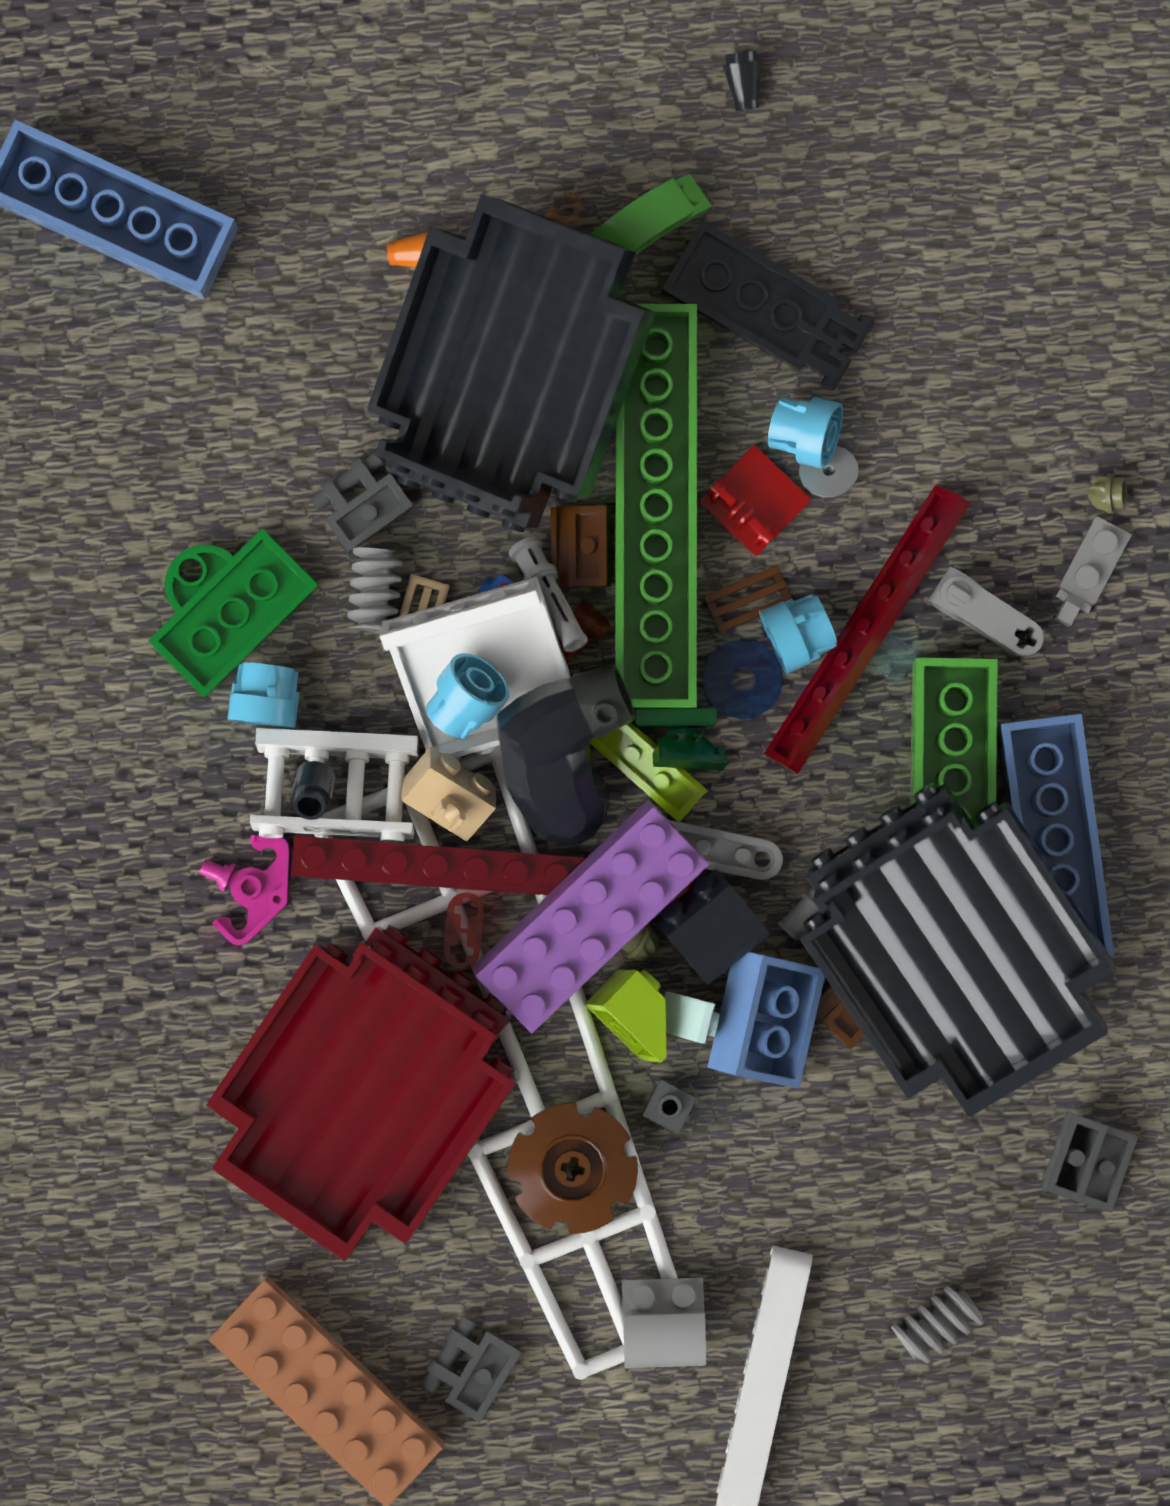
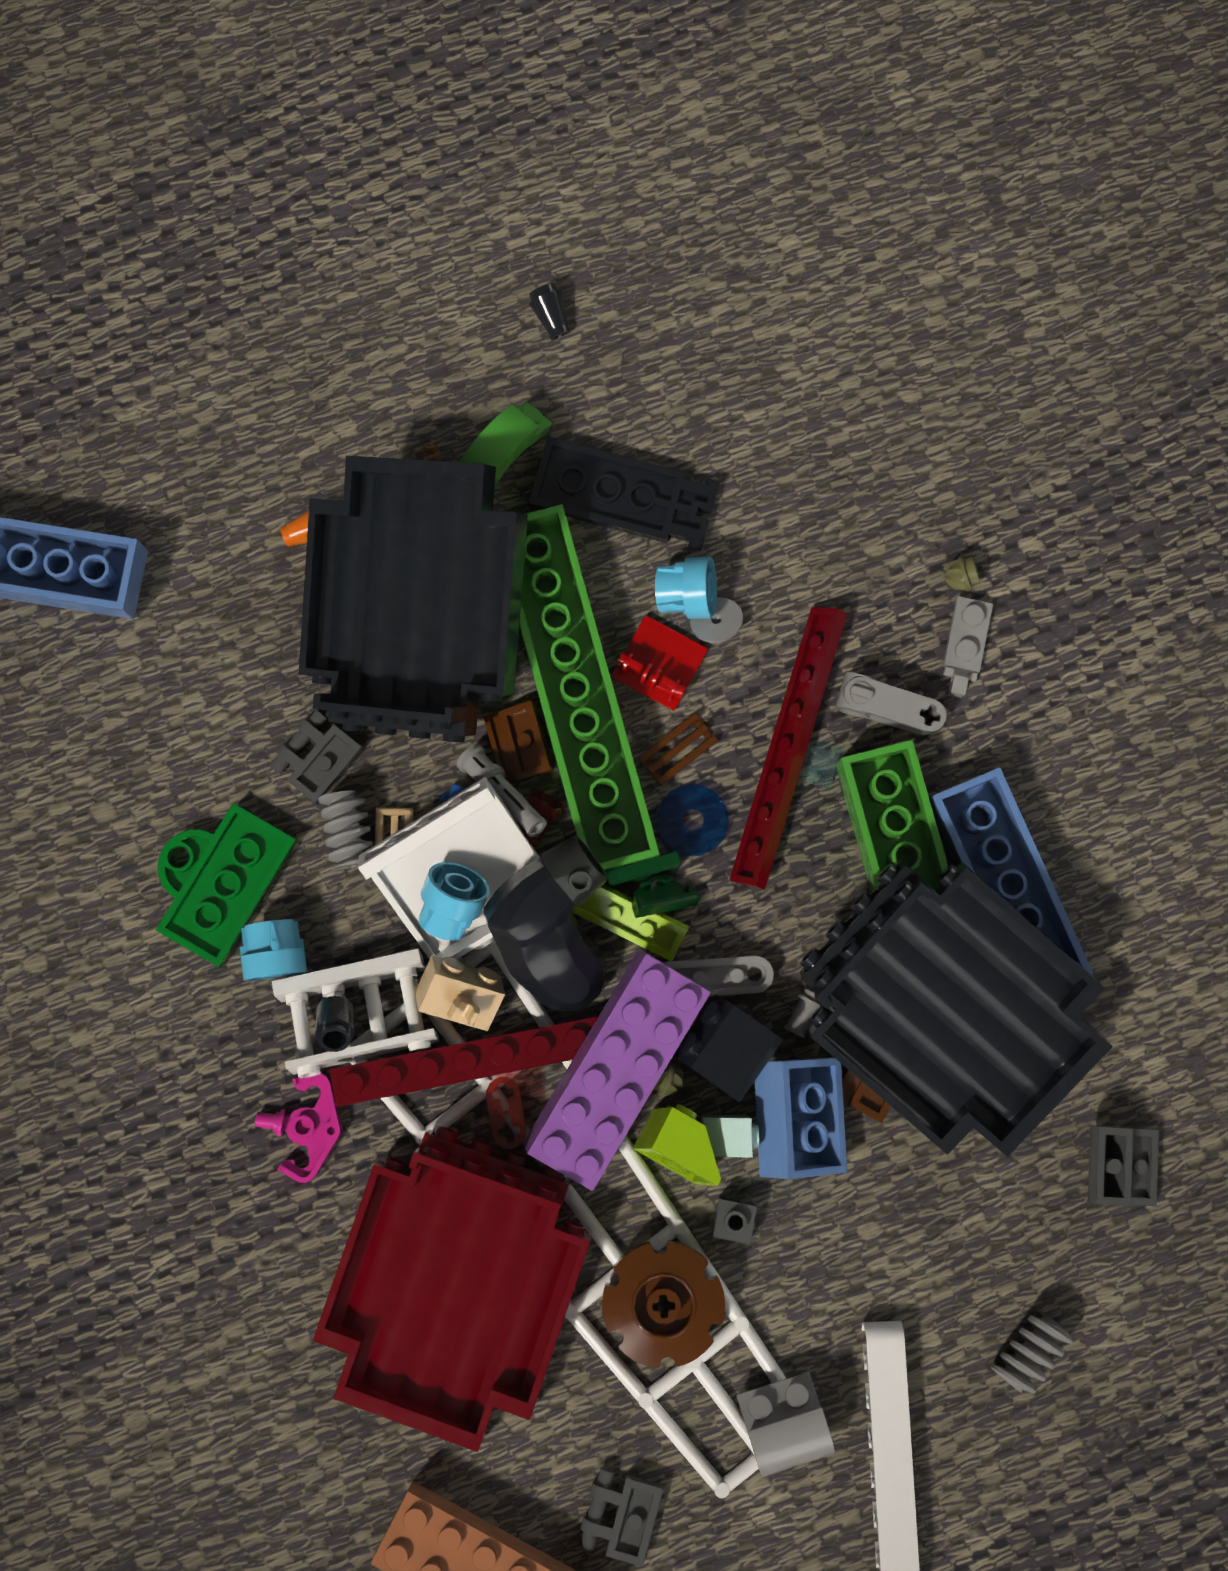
camera: 20 degrees left, 5 degrees down
(798, 631) = (730, 764): medium azure piece -> none

